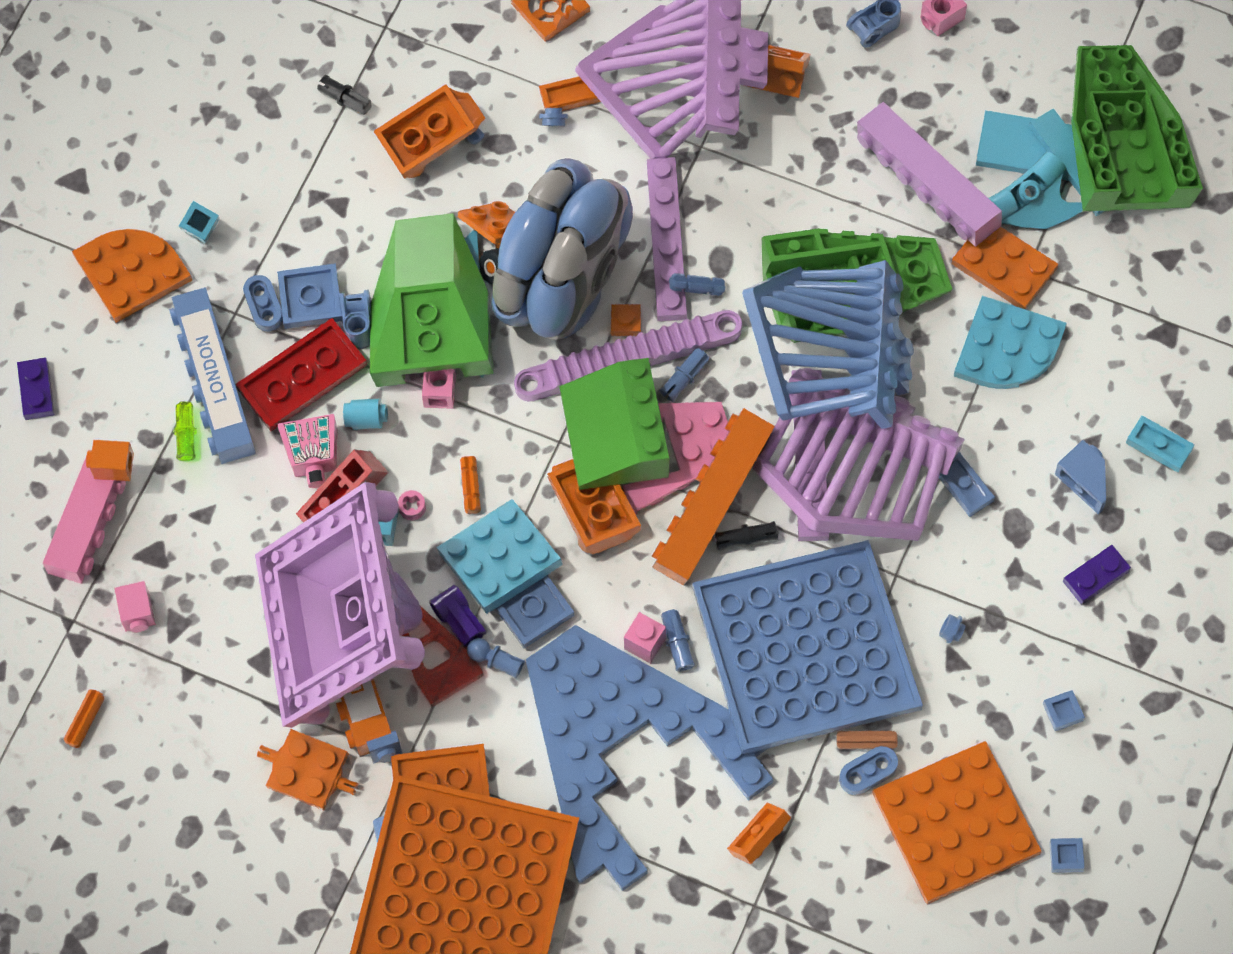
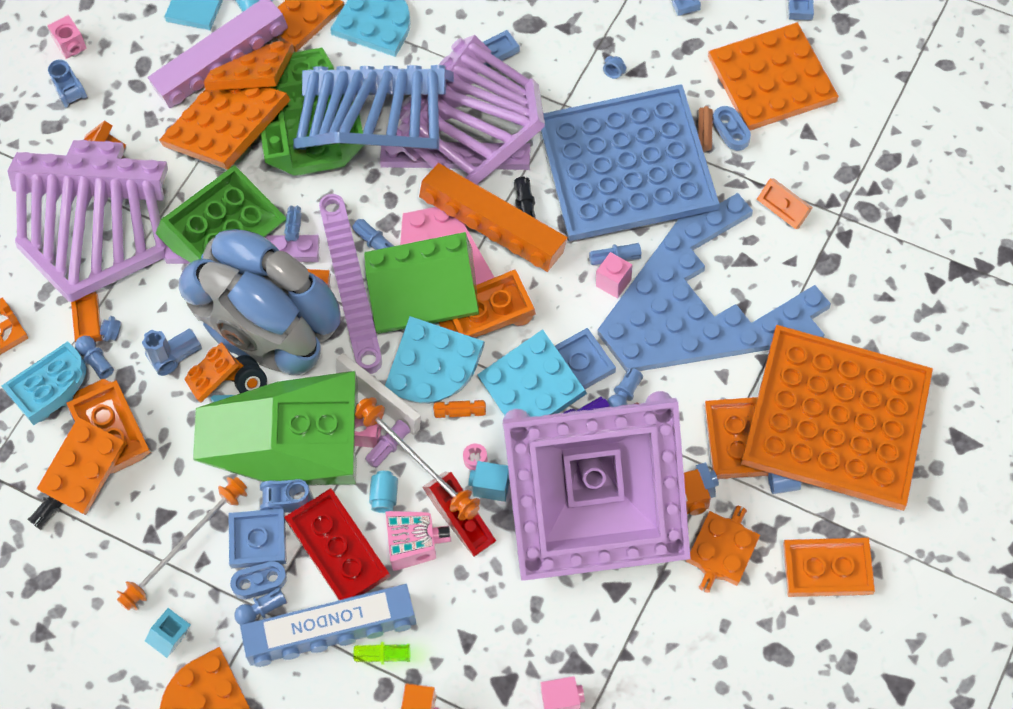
camera: 85 degrees left, 5 degrees down
(226, 296) = (263, 605): none -> medium blue pin
(248, 188) = (135, 592): none -> orange axle
(284, 881) = (828, 567): none -> orange plate
(378, 112) = (81, 466): none -> orange plate
(423, 413) = (386, 444): none -> lavender axle
(439, 386) = (461, 501): none -> orange axle
(478, 65) = (47, 383): none -> medium azure plate
(482, 397) = (371, 387): none -> white tile
(519, 171) = (166, 354): none -> medium blue piece
(520, 447) = (432, 362): none -> medium azure plate
(531, 98) = (93, 356): none -> medium blue pin
(687, 207) = (221, 205): none -> bright green slope
(829, 192) = (224, 123): none -> orange plate
(900, 214) = (252, 70): none -> orange plate

